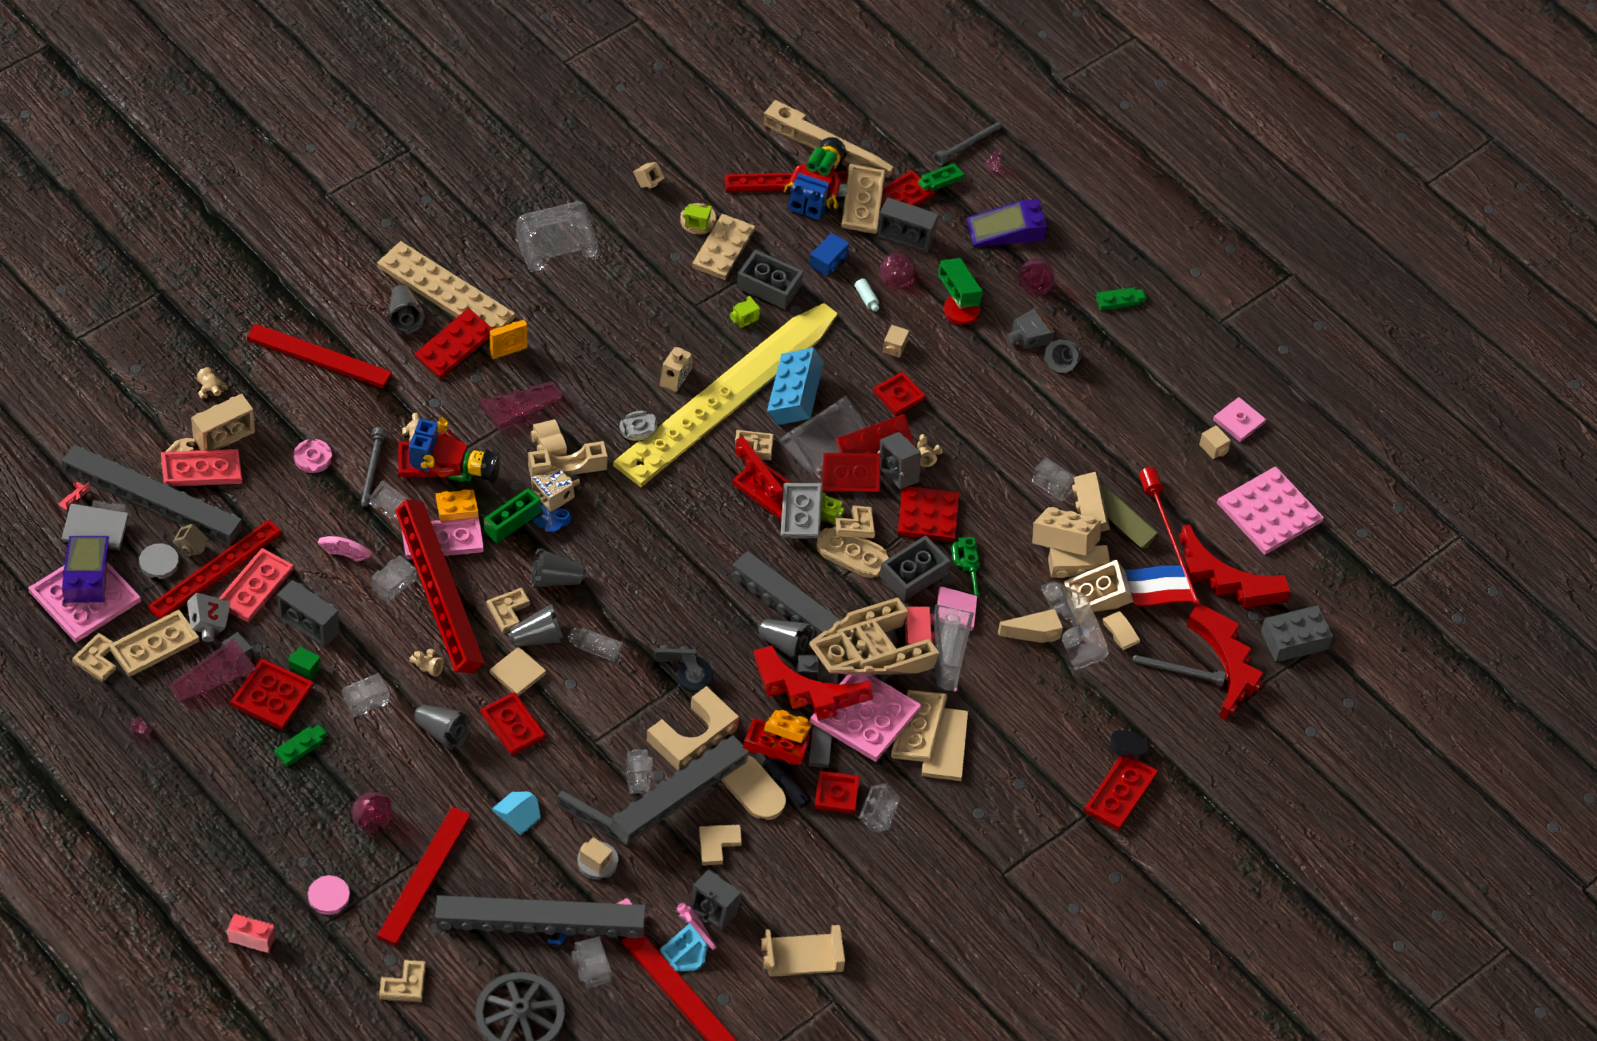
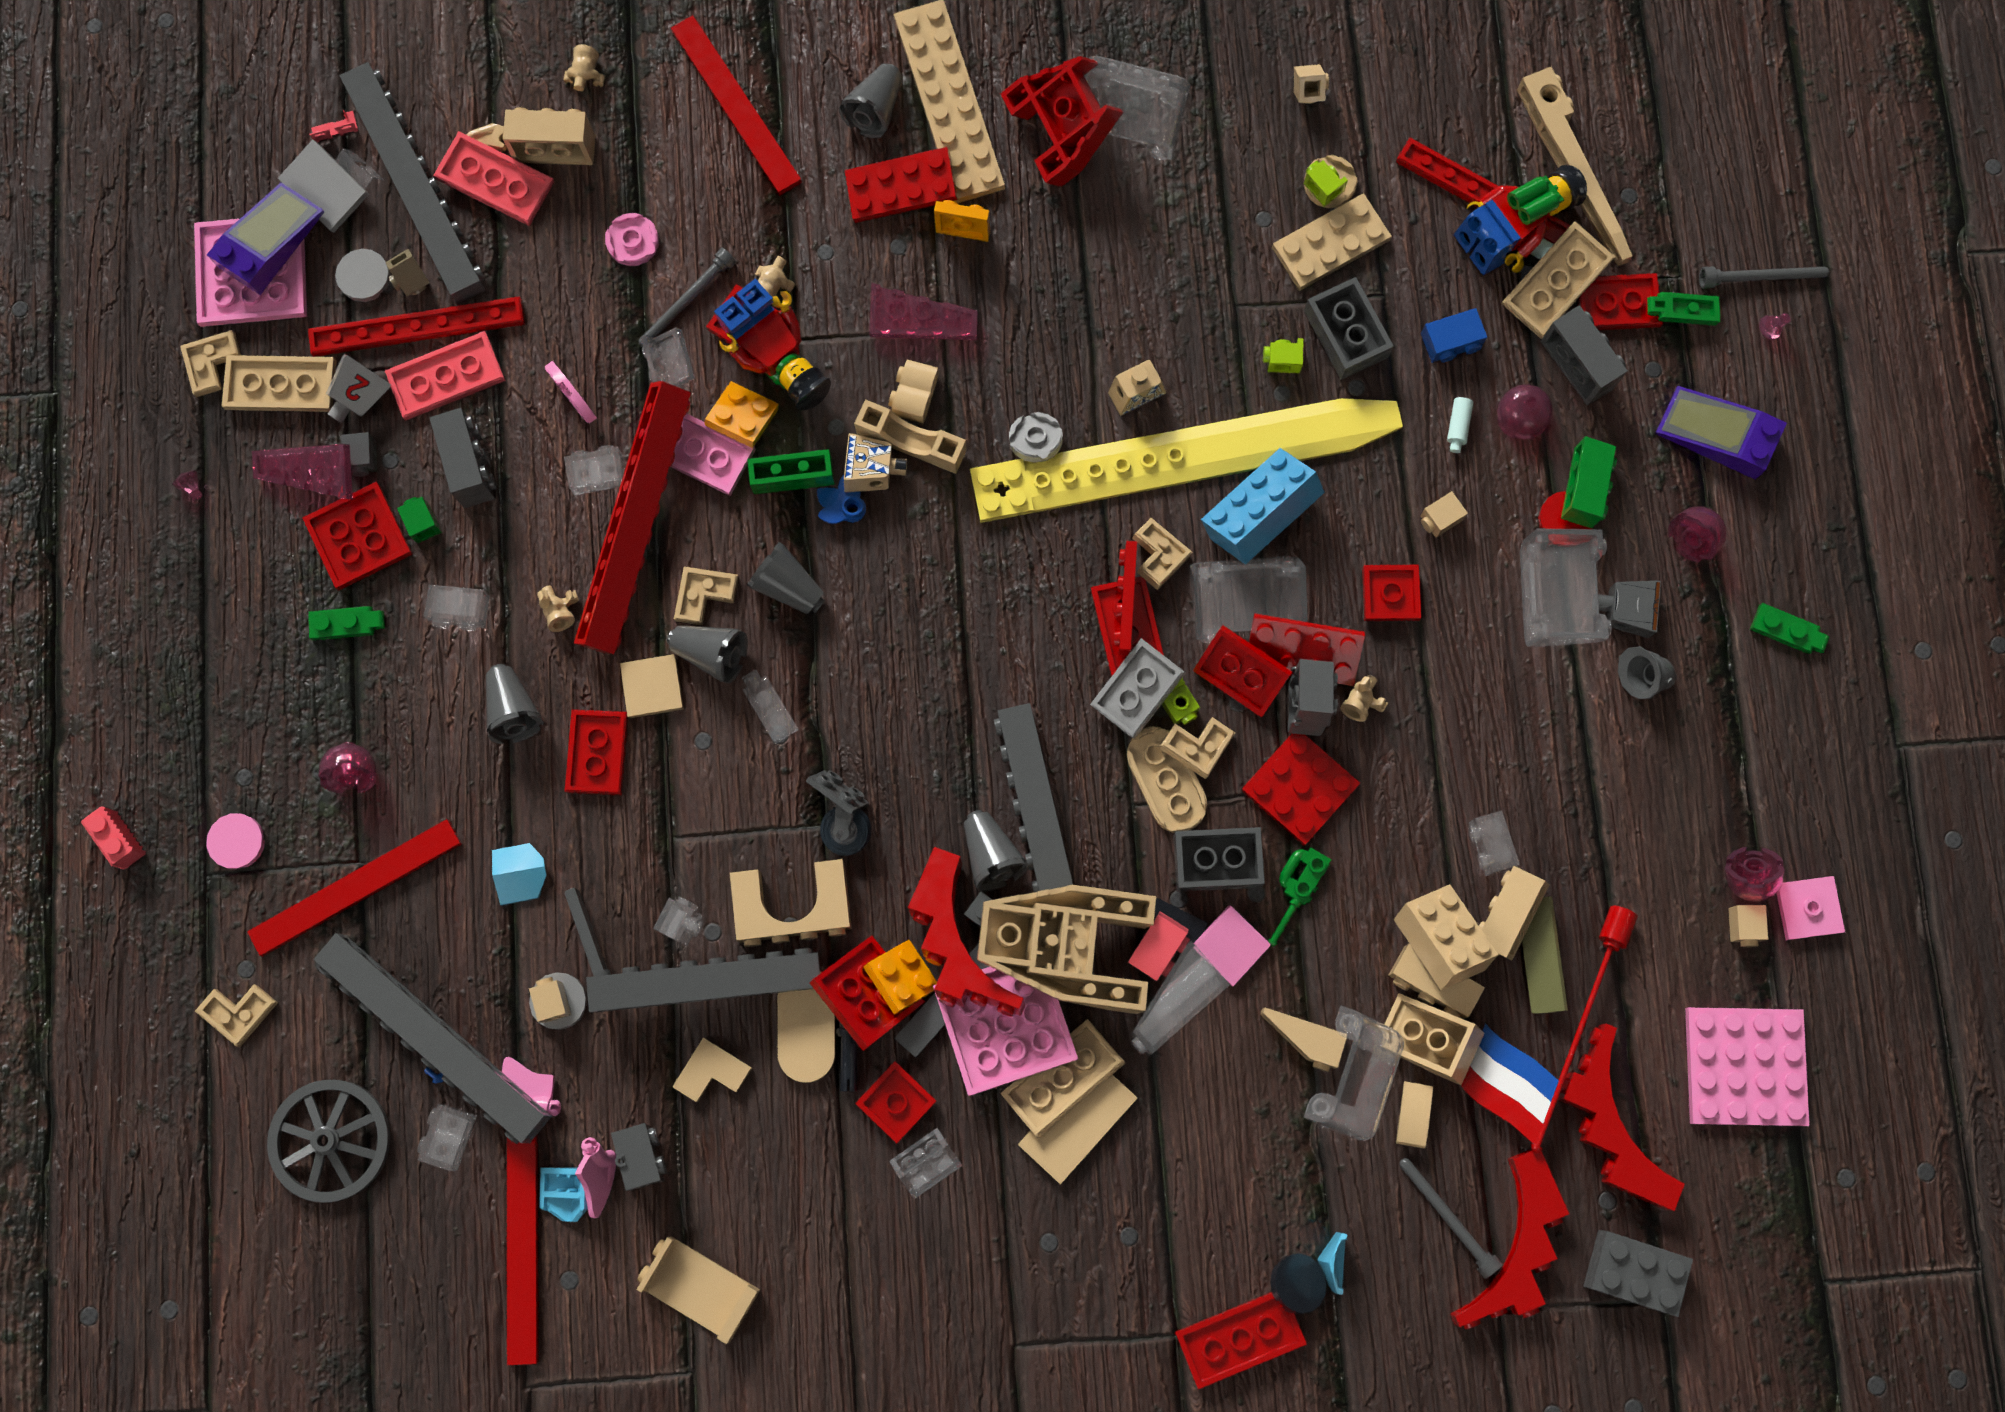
camera: 45 degrees right, 25 degrees up
(526, 250) = (1068, 114): none -> red wedge
(986, 339) = (1562, 587): none -> clear windscreen
(1139, 724) = (1332, 1262): none -> medium azure slope
(1199, 416) = (1754, 873): none -> clear pink cylinder

